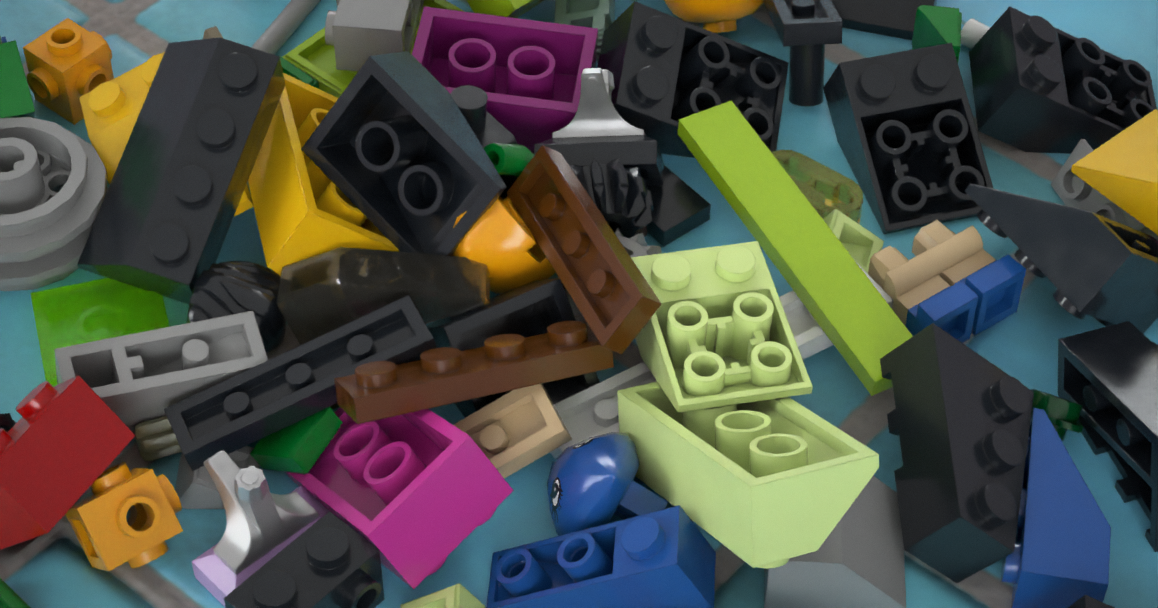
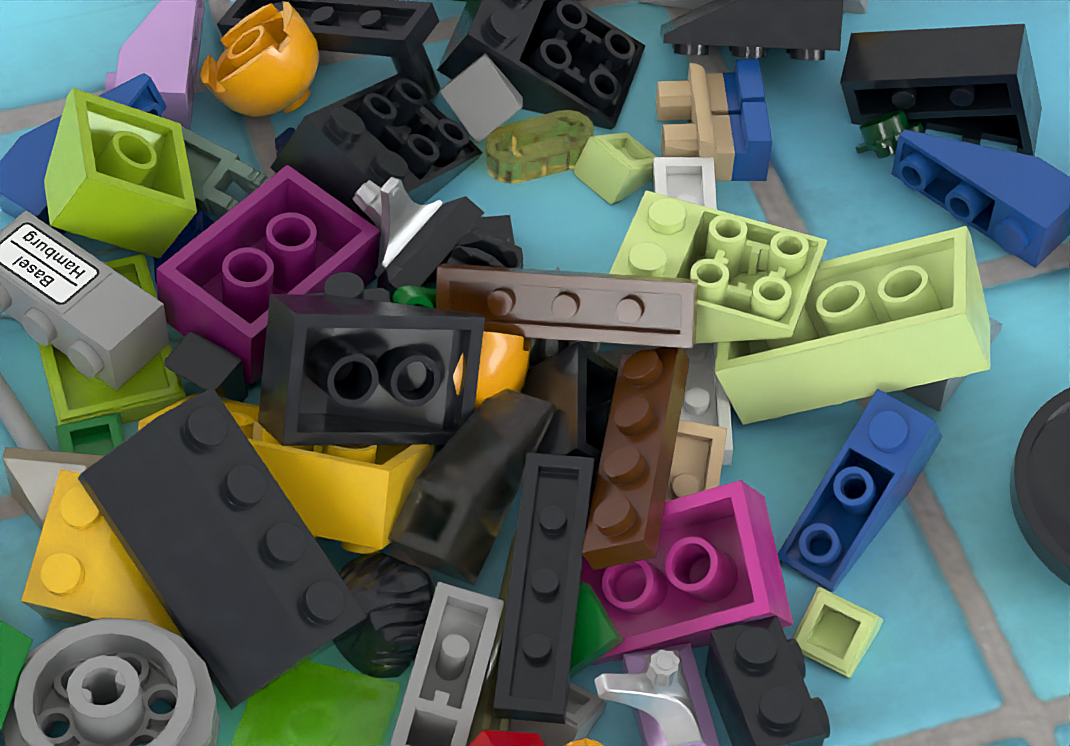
camera: 60 degrees left, 5 degrees up
(597, 481) = (783, 443): blue piece -> none
(796, 240) = (619, 174): lime tile -> none
(811, 123) = (482, 98): none -> light grey slope
(961, 452) = (908, 193): black wedge -> none

